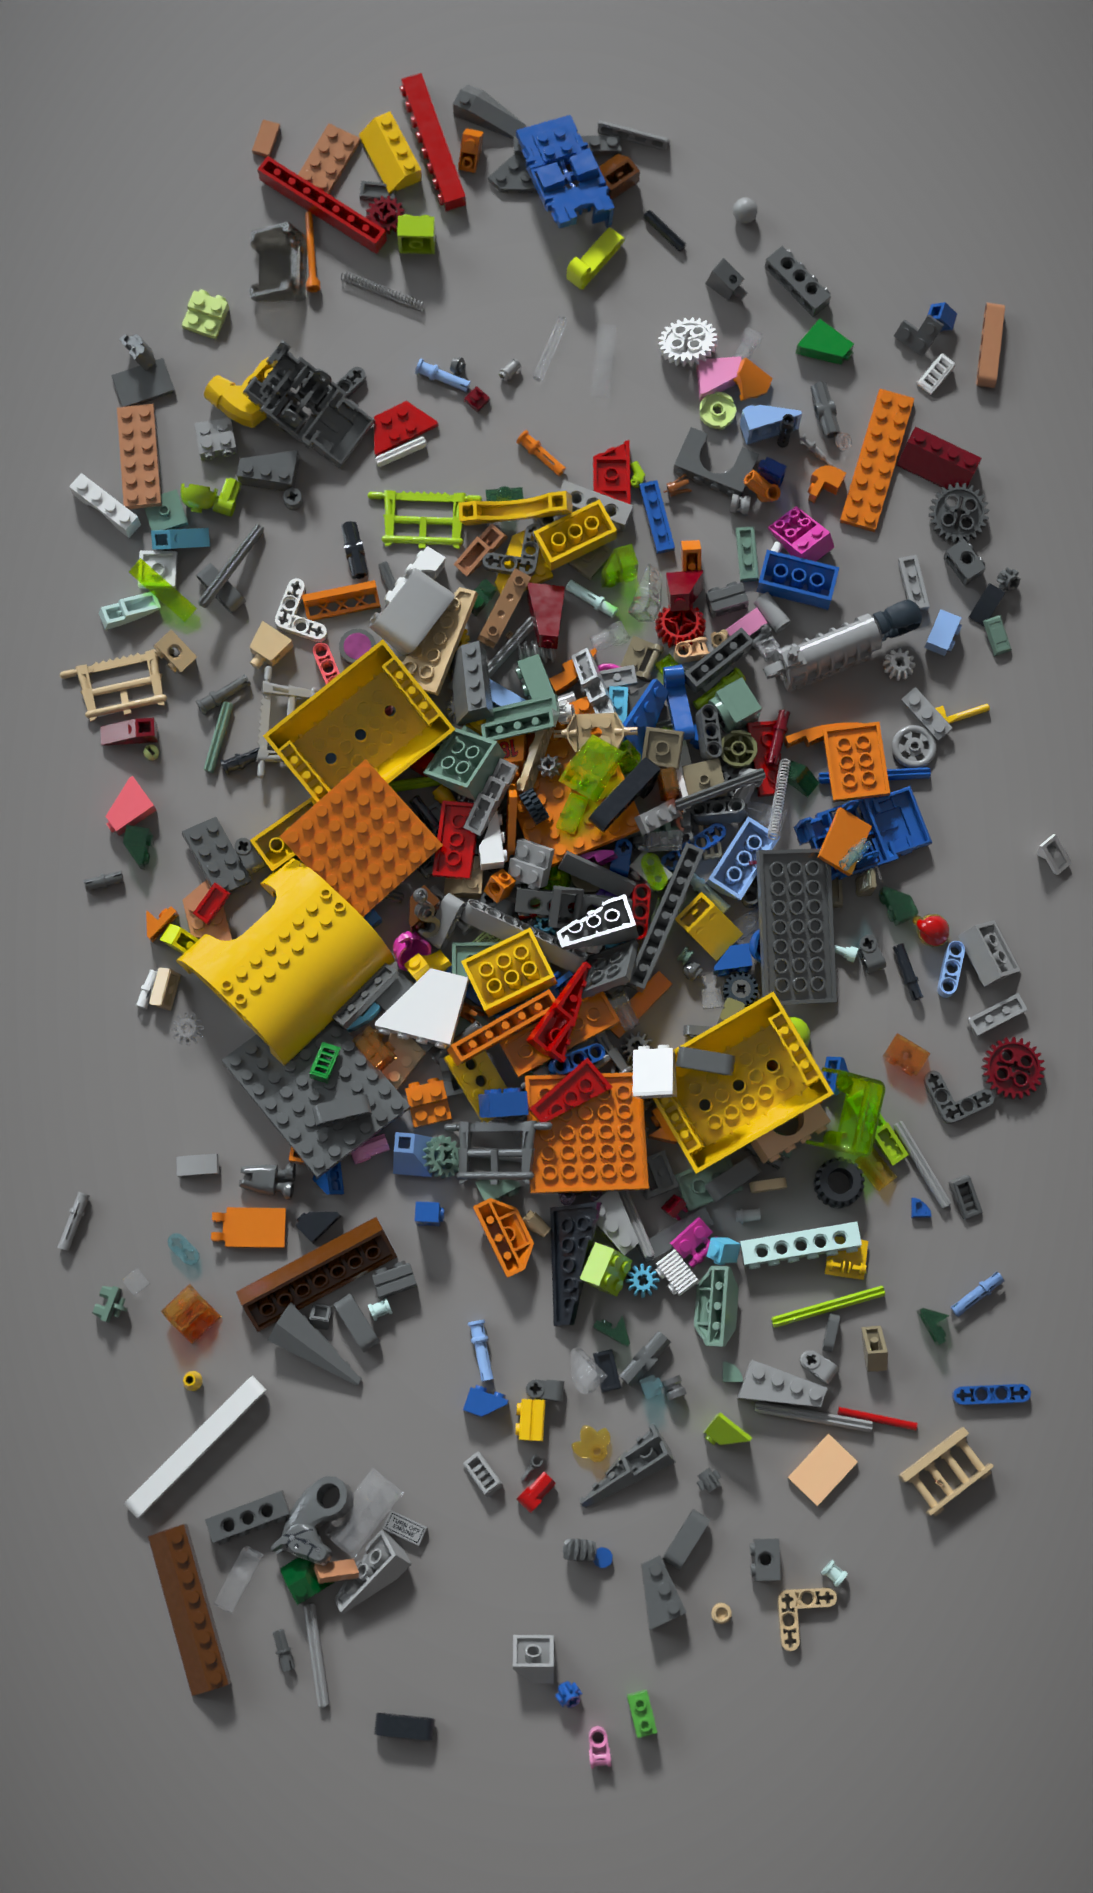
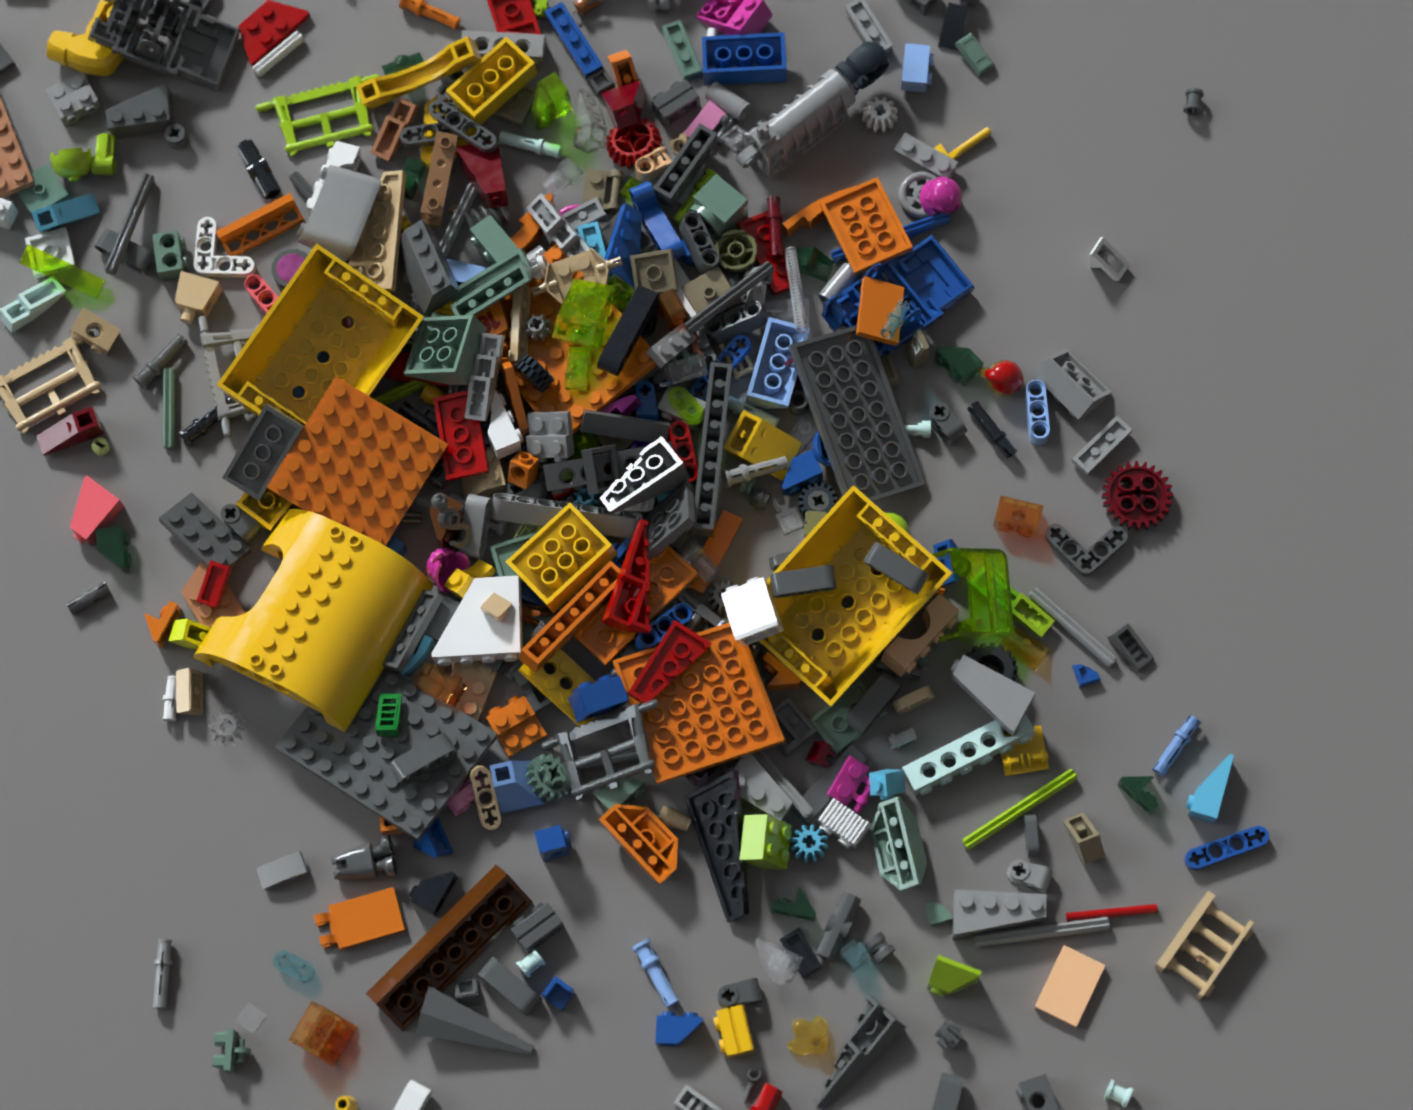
camera: 10 degrees left, 5 degrees down
(254, 603) = (166, 256): none -> sand green brick
(285, 804) = (262, 451): none -> dark grey plate
(388, 1170) = (494, 811): none -> tan beam
(395, 1342) = (558, 993): none -> blue panel
(441, 999) = (496, 607): none -> tan slope
(537, 568) = (463, 126): none -> dark grey beam
(668, 561) = (600, 82): none -> dark grey tile
(685, 946) = (743, 471): none -> light grey pin
(787, 1075) = (896, 568): none -> dark grey beam
(817, 804) = (840, 281): none -> light grey pin
(839, 1206) = (995, 693): none -> light grey slope
(928, 753) = (940, 195): none -> dark pink helmet
(990, 1346) = (1208, 796): none -> medium azure slope

